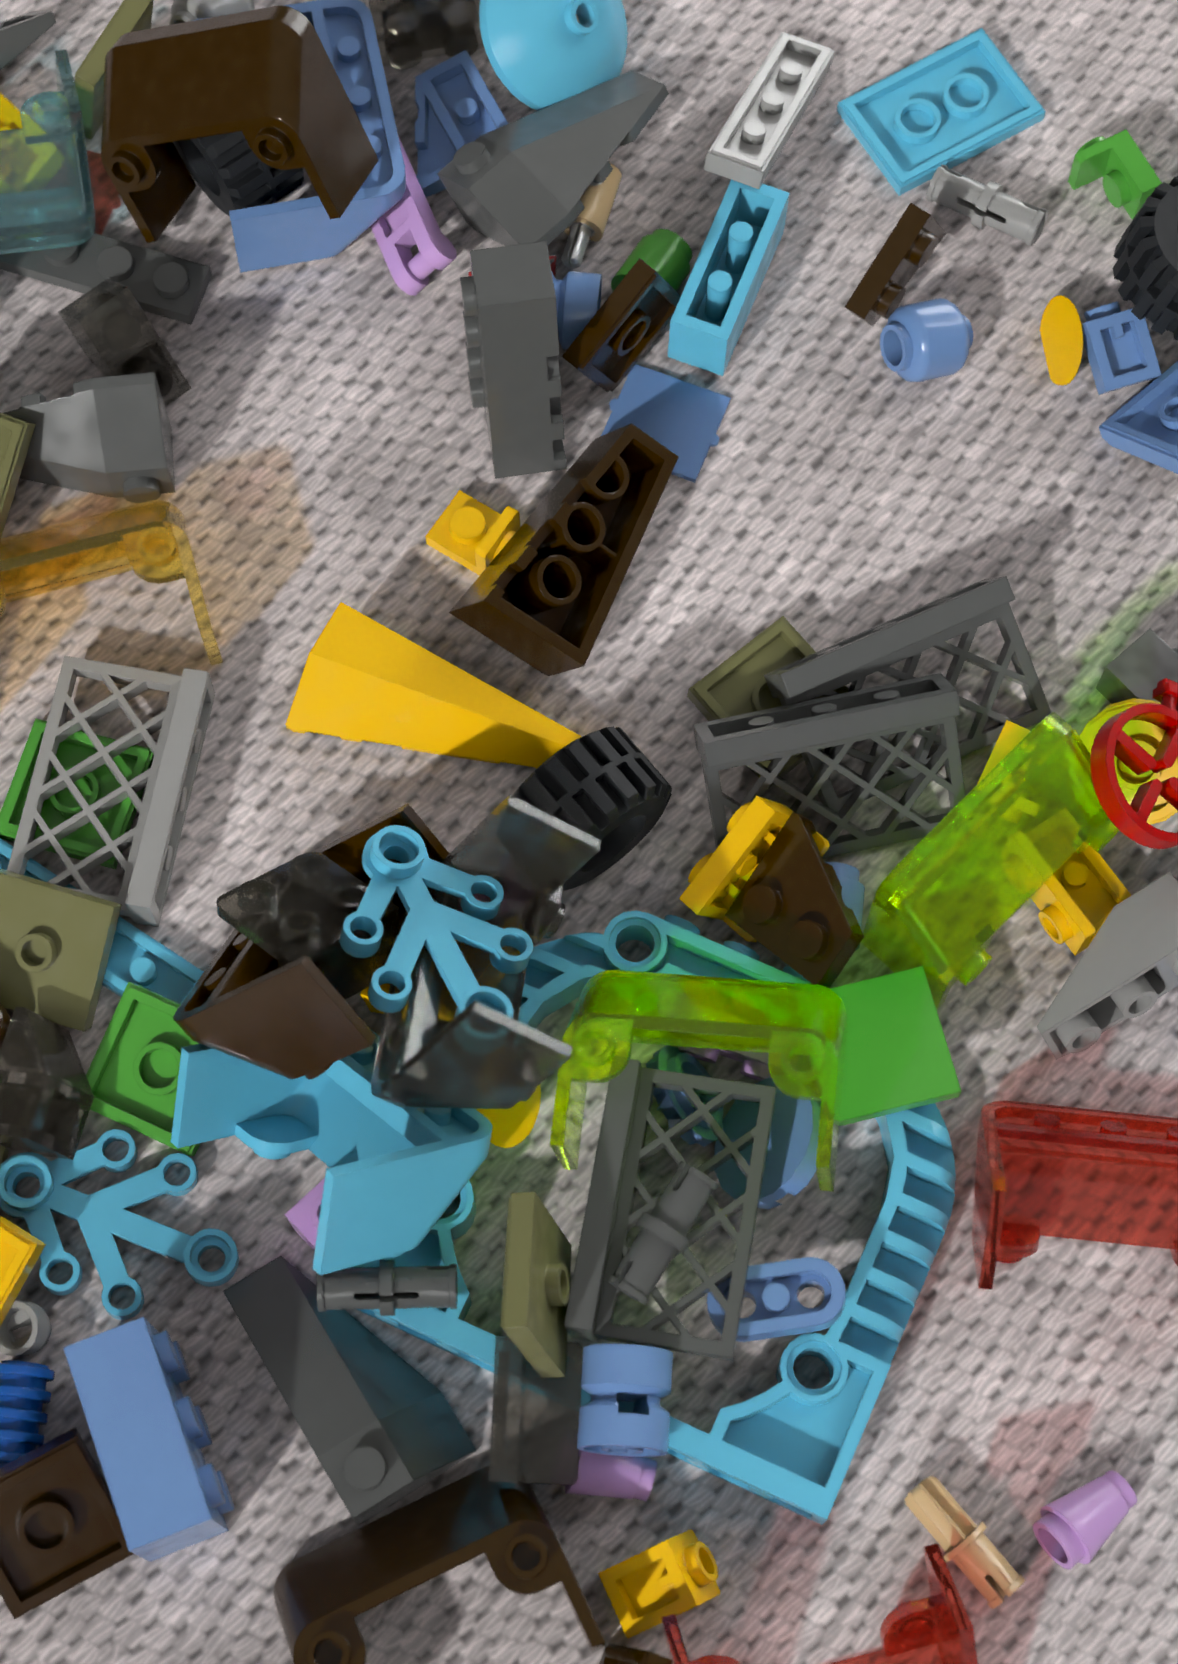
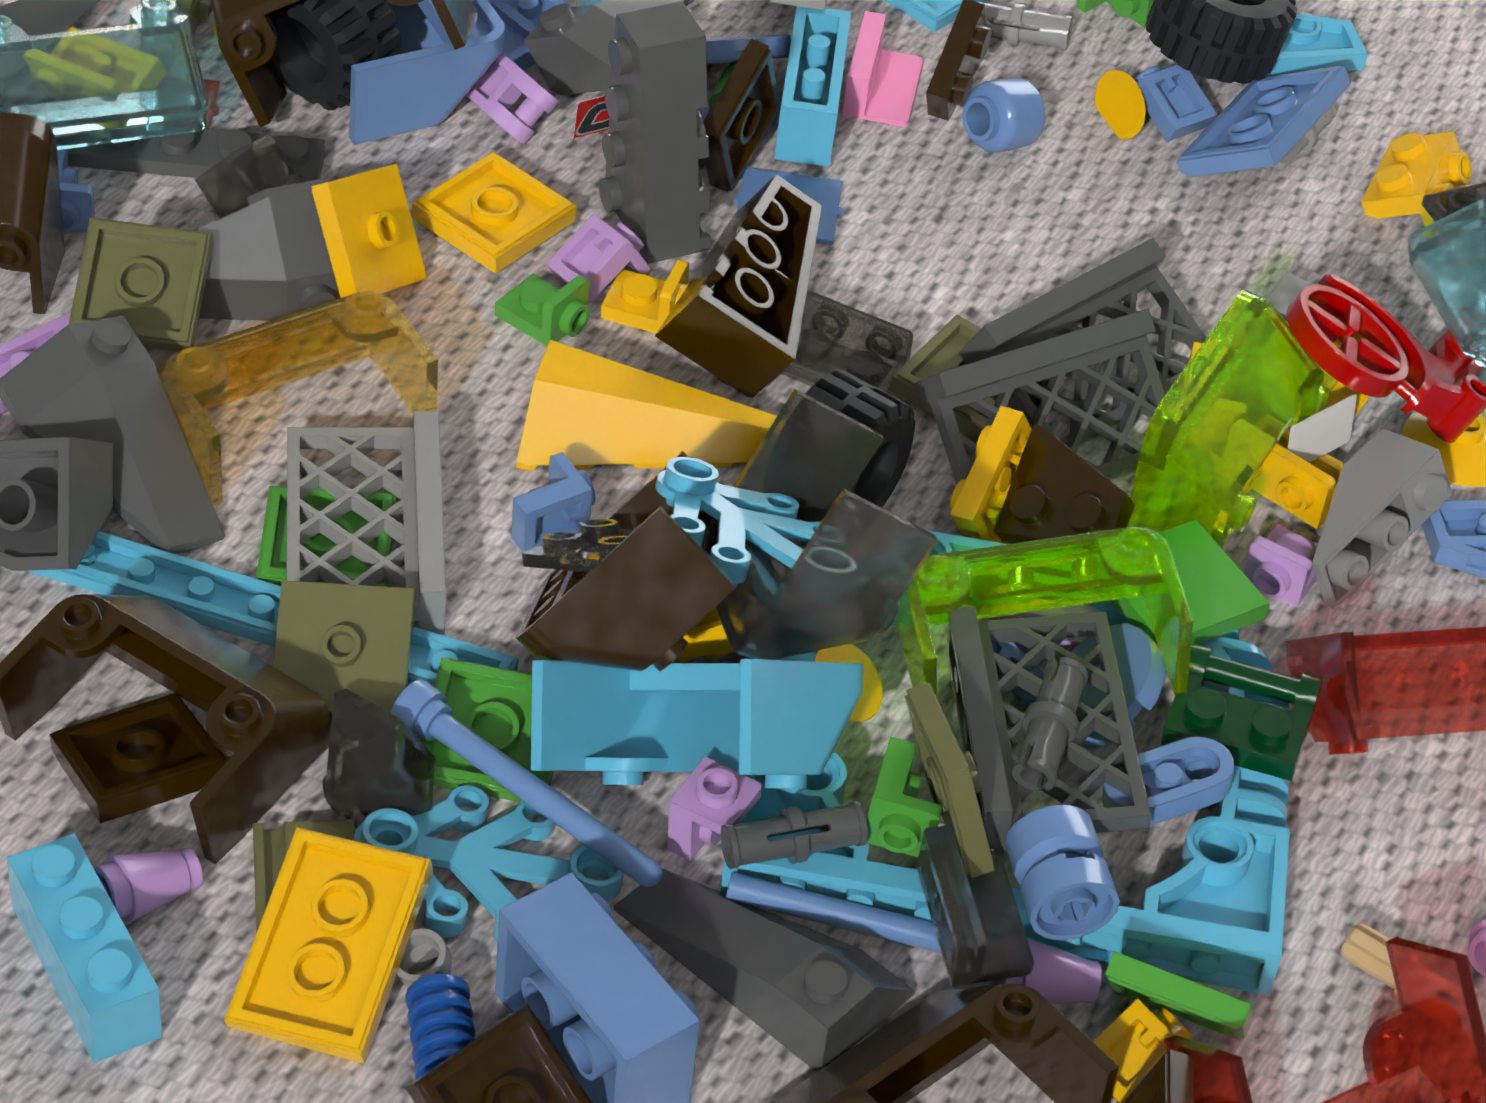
camera: 20 degrees left, 25 degrees down
(92, 1054) = (429, 716): none -> medium blue piece
(199, 428) = (369, 231): none -> yellow plate
(296, 806) = (553, 507): none -> medium blue bracket
(353, 391) = (494, 212): none -> yellow plate
(369, 530) = (545, 309): none -> bright green bracket
(414, 1349) = (832, 911): none -> medium blue bar
(438, 473) = (598, 254): none -> lavender bracket
(482, 1276) = (895, 812): none -> bright green bracket
(655, 644) = (849, 340): none -> clear smoke bracket
(663, 204) = (731, 48): none -> medium blue tile
(711, 1543) = (1179, 996): none -> bright green tile
(814, 260) = (880, 81): none -> bright pink panel
(876, 1238) = (1254, 732): none -> dark green plate
(1018, 1001) = (1282, 565): none -> lavender bracket
(1101, 863) = (1323, 430): none -> white sticker

